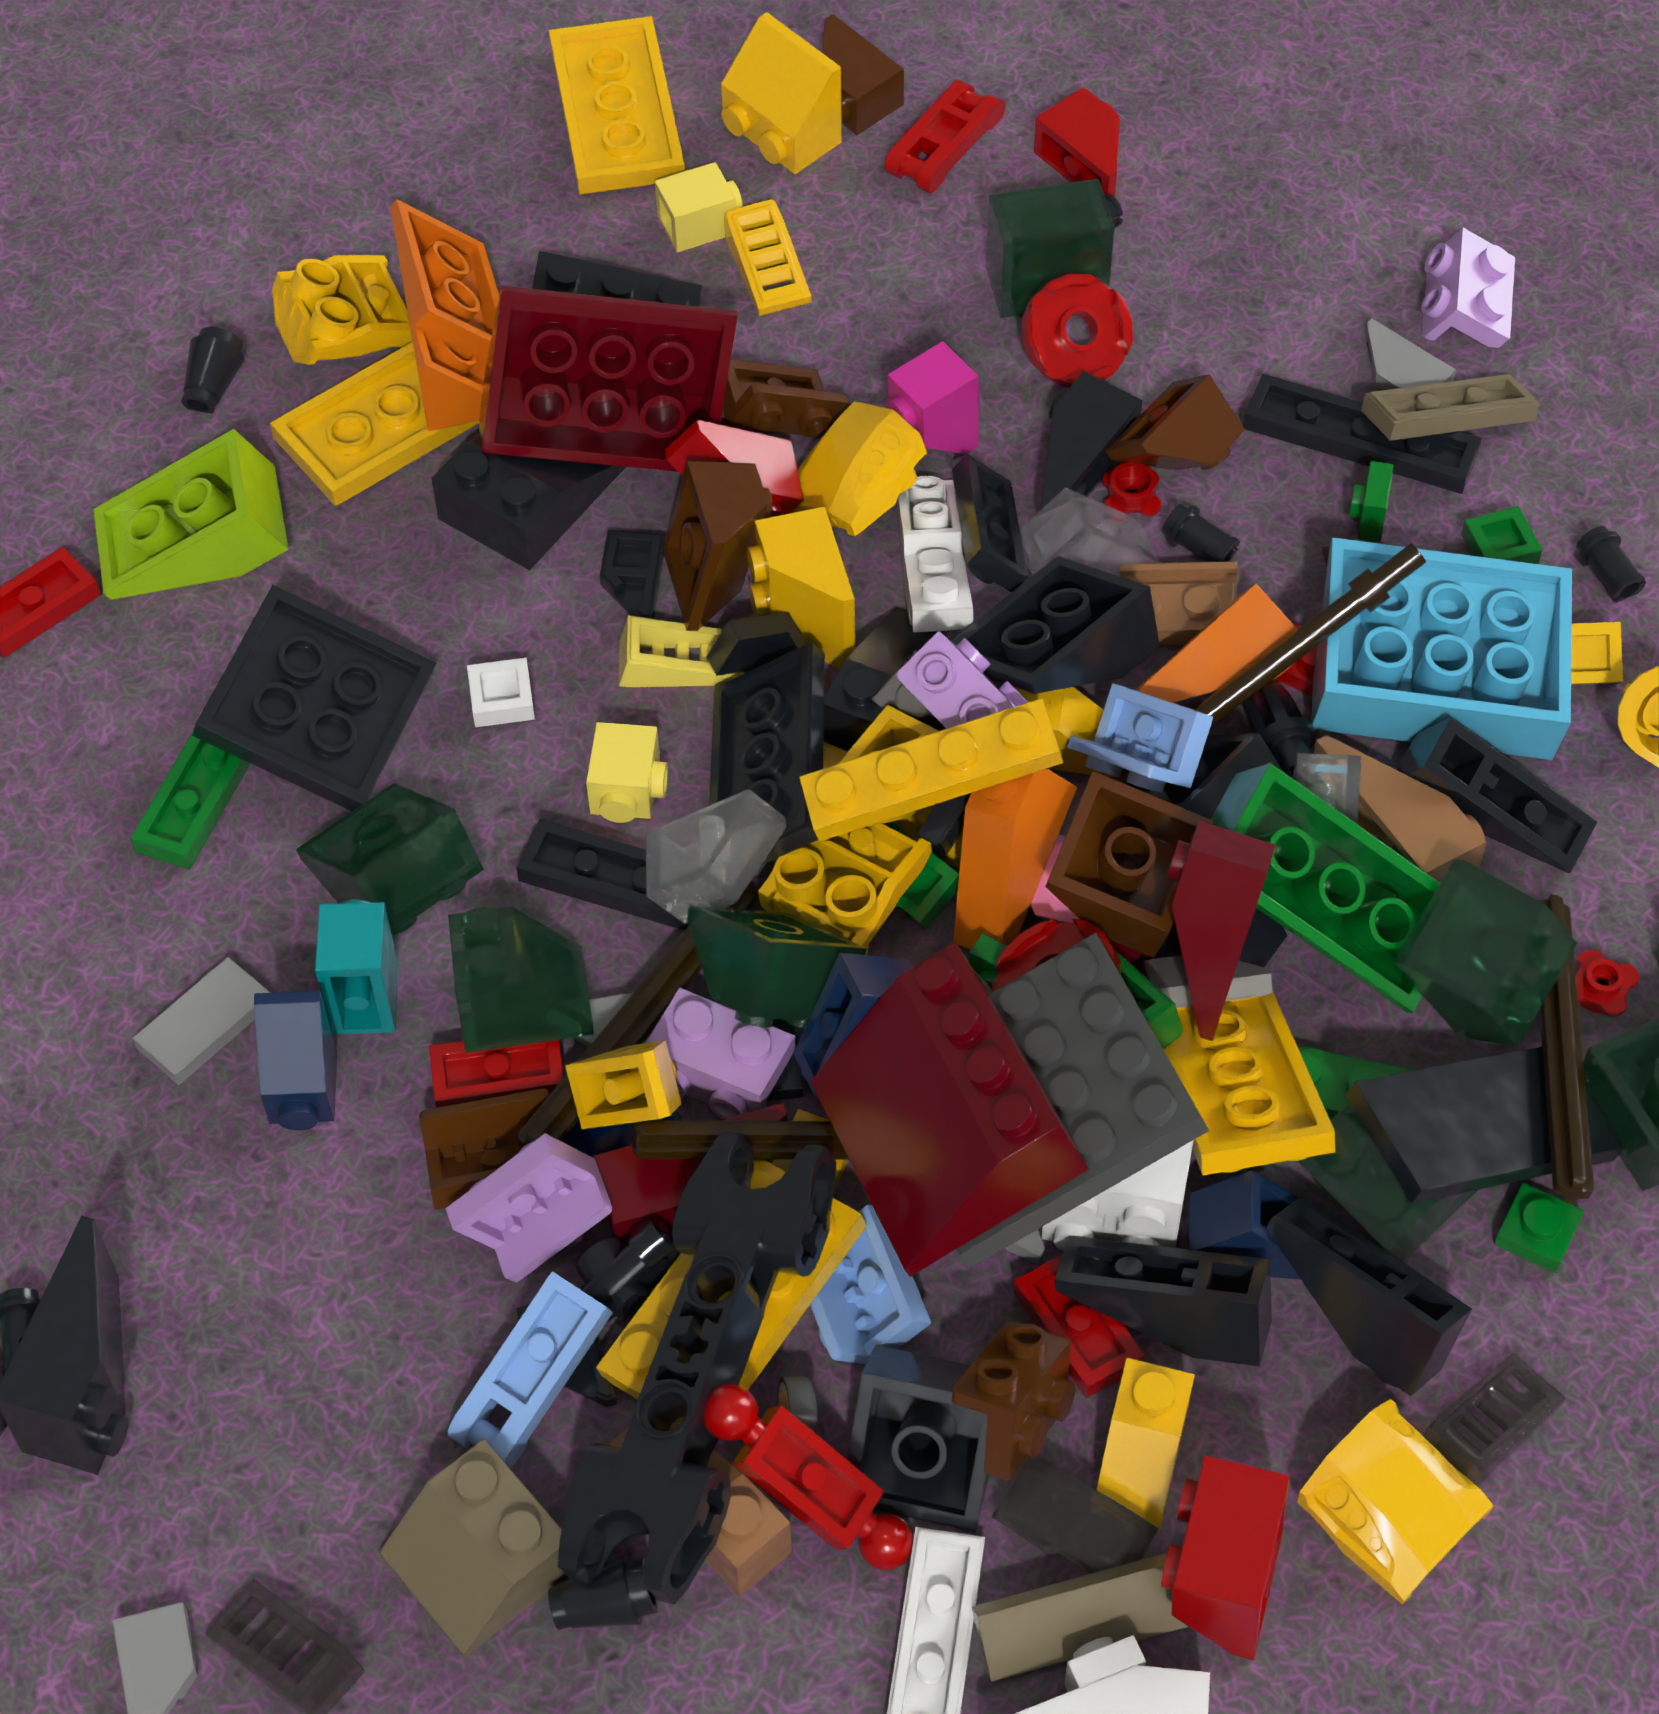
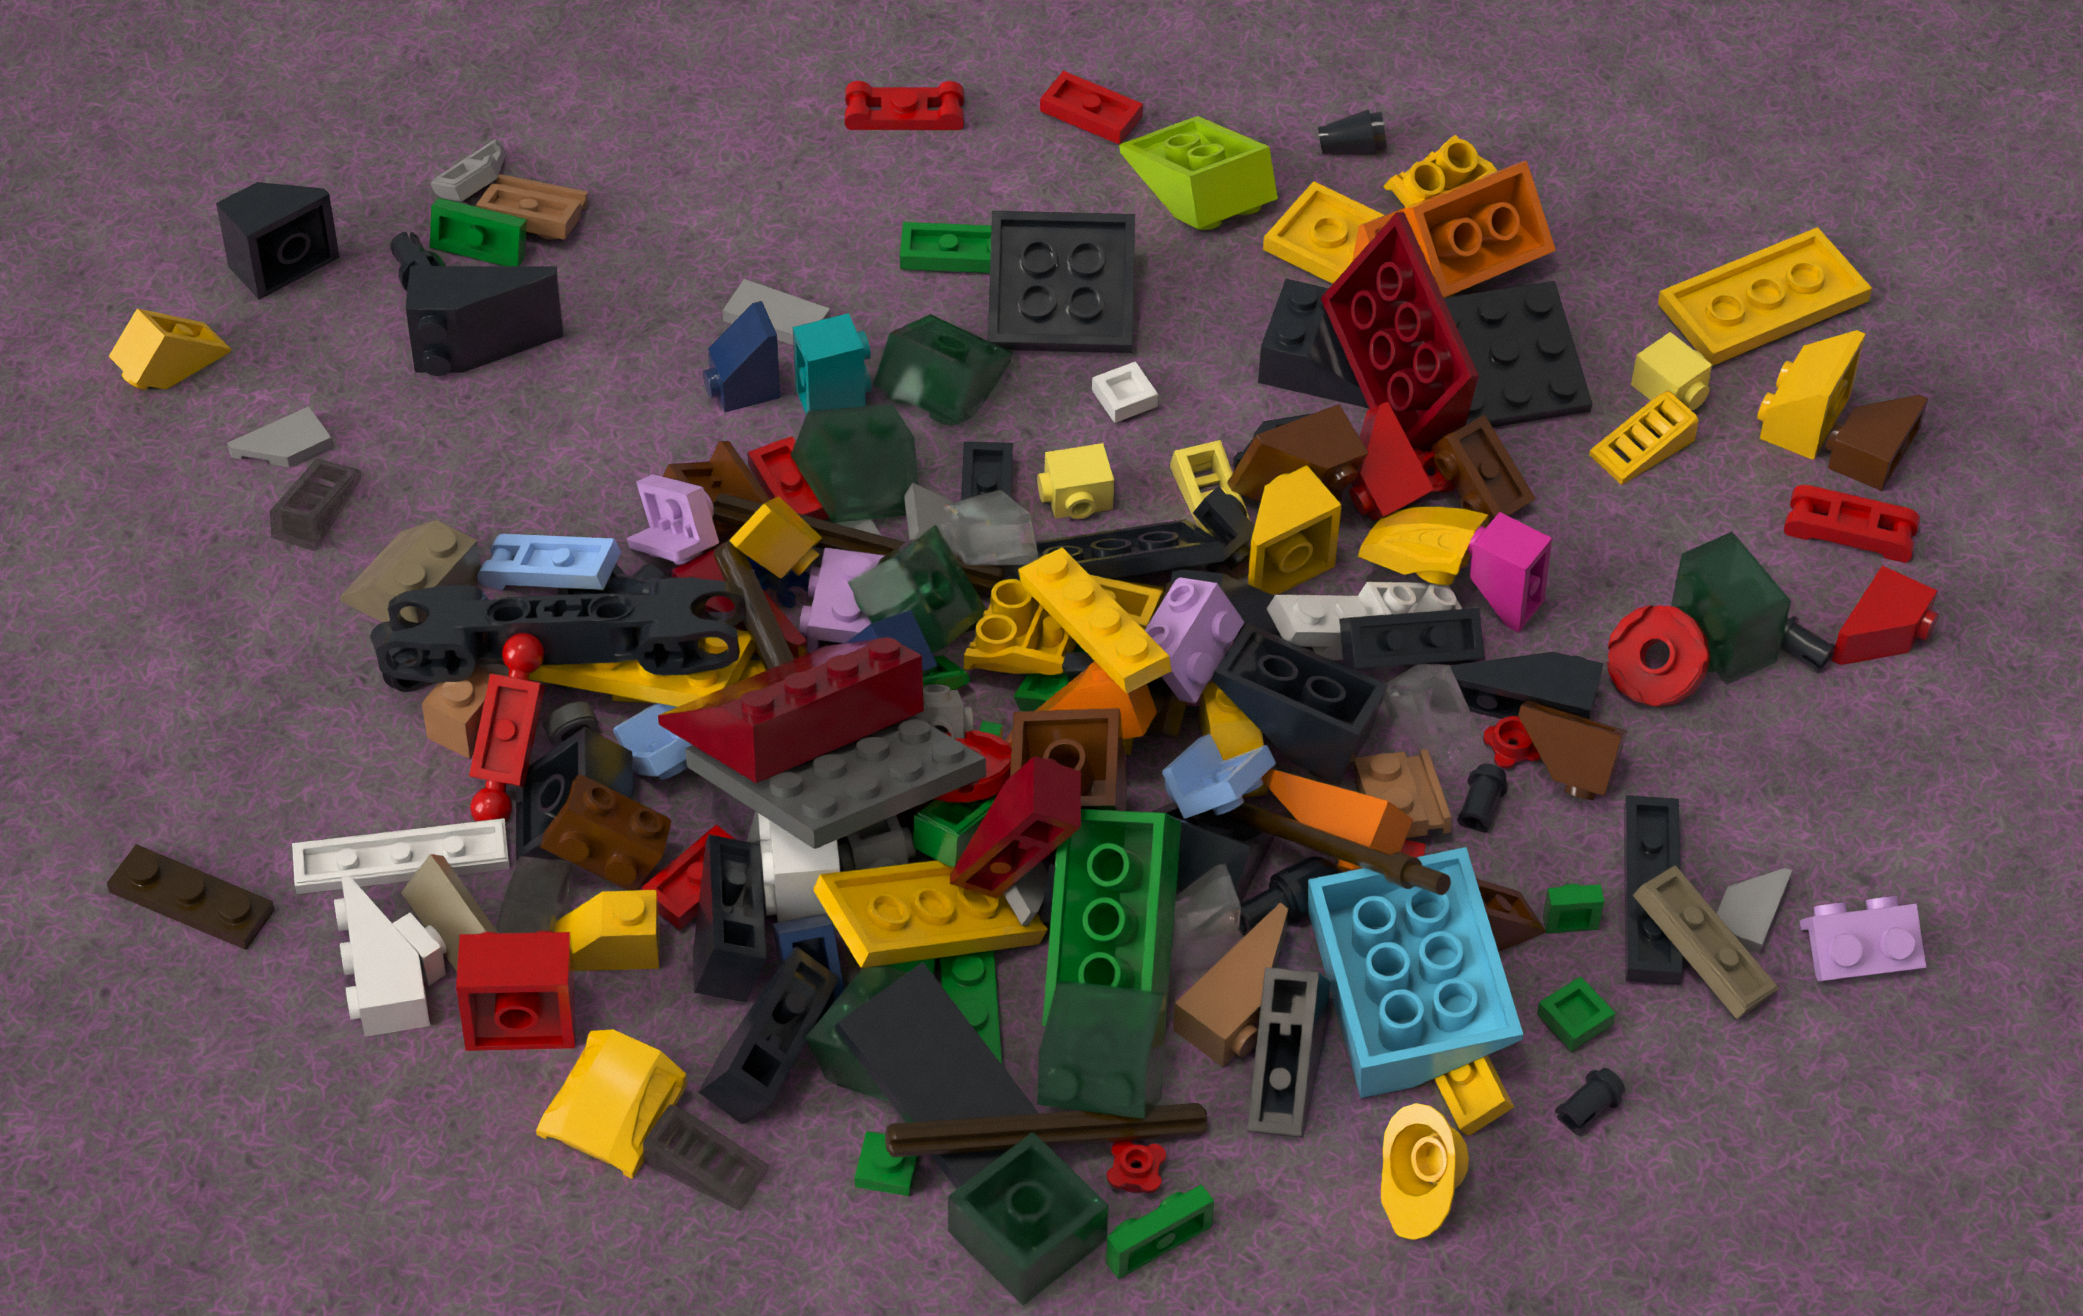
camera: 70 degrees right, 5 degrees down
(623, 933) = (924, 509): none -> light grey tile

